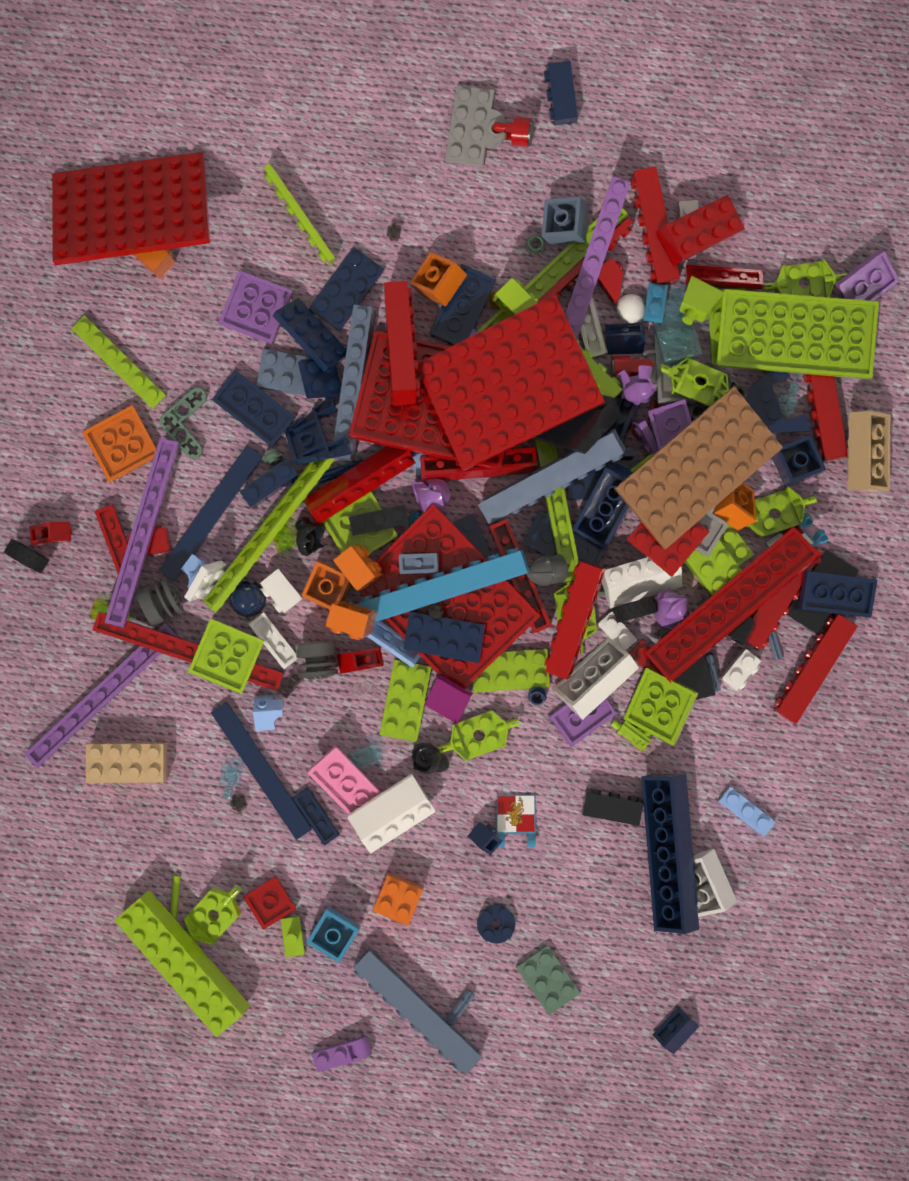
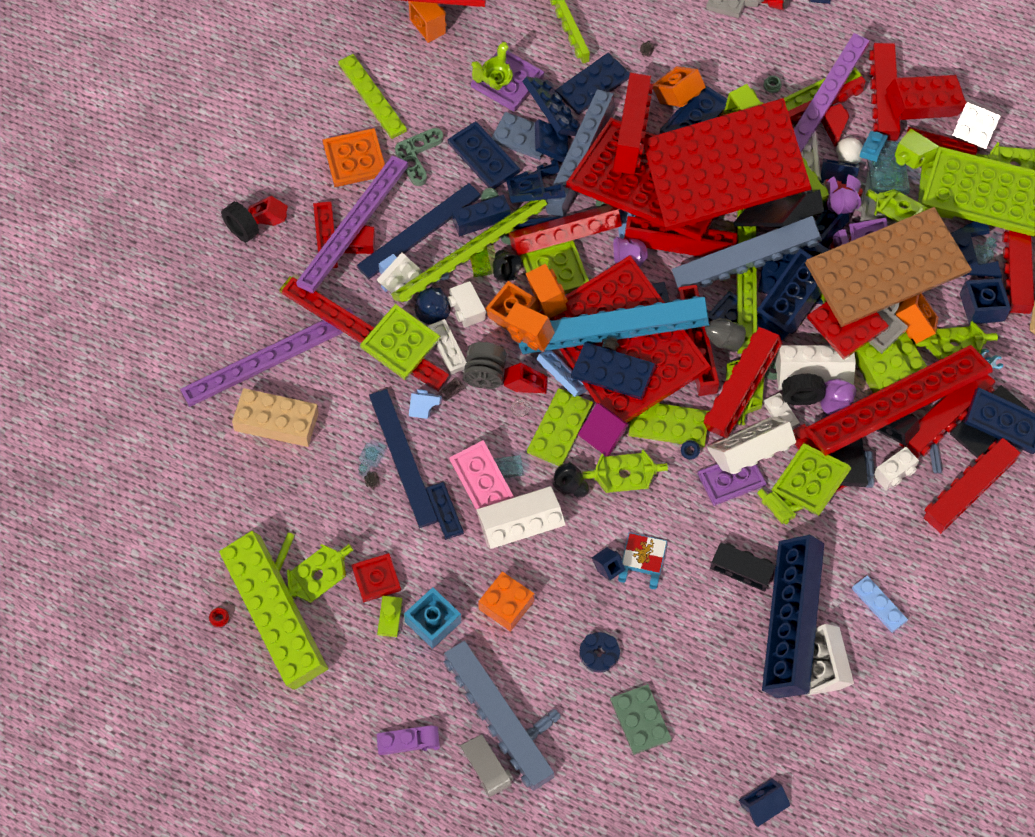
camera: 15 degrees right, 25 degrees down
(127, 977) = (214, 613): none -> red plate
(157, 602) = (351, 284): dark grey wheel -> none
(238, 305) = (493, 69): none -> lime hair
(378, 520) = (575, 264): black plate -> none
(418, 563) = (604, 300): sand blue plate -> none
(424, 1068) = (487, 766): none -> light grey door
(565, 220) = (804, 66): sand blue brick -> none
(759, 250) = (977, 124): none -> brick

